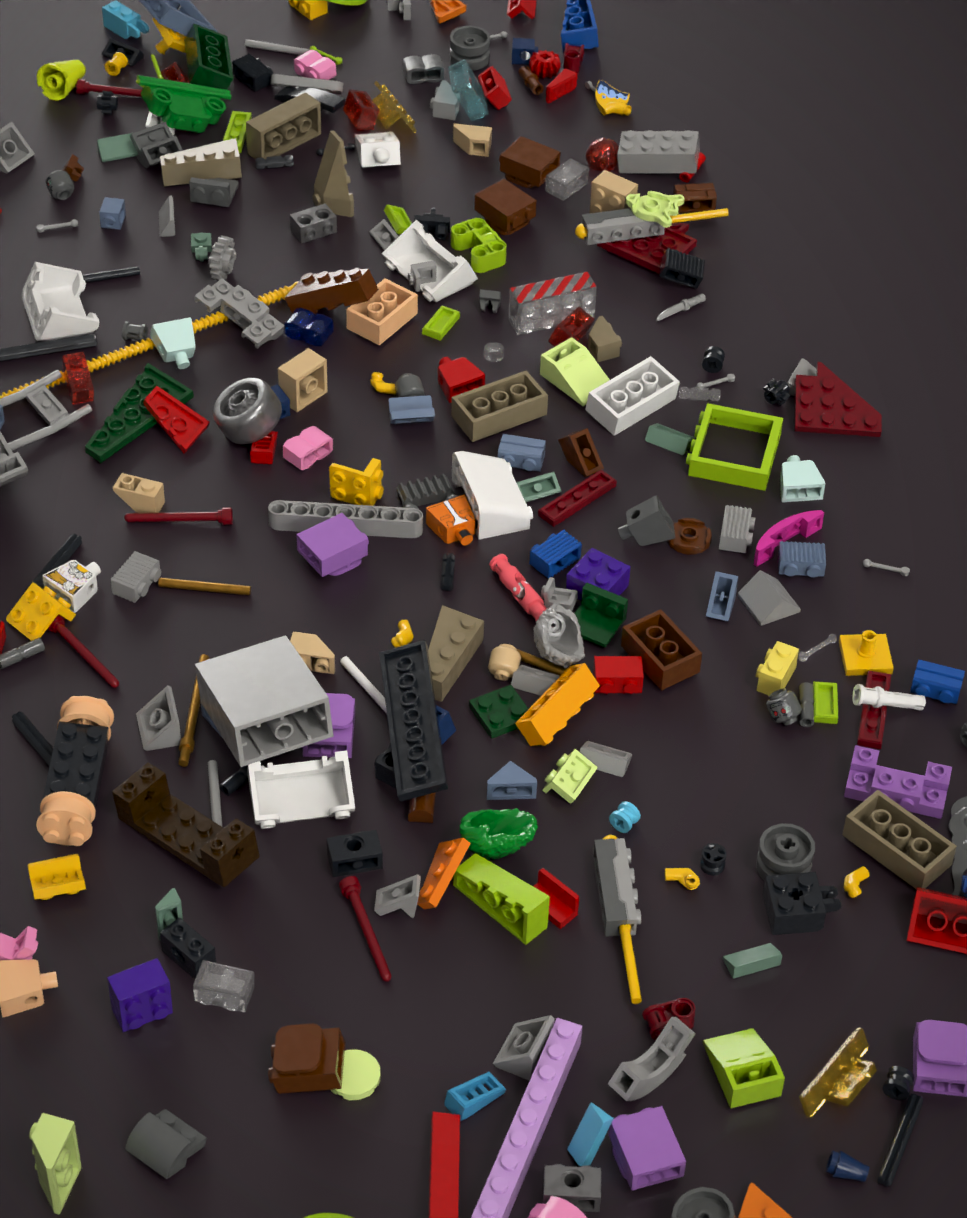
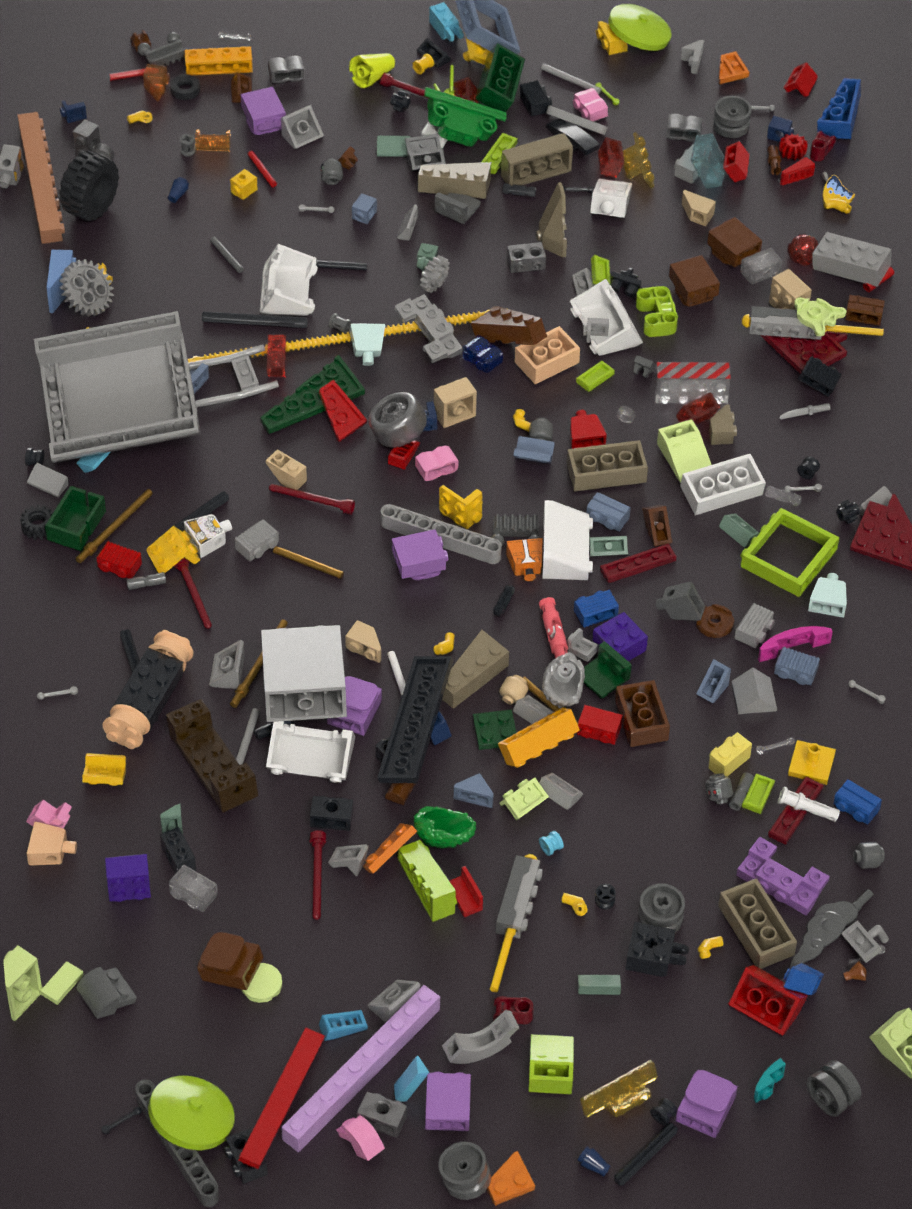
camera: 20 degrees right, 5 degrees up
(103, 1148) = (62, 983): none -> yellowish green tile

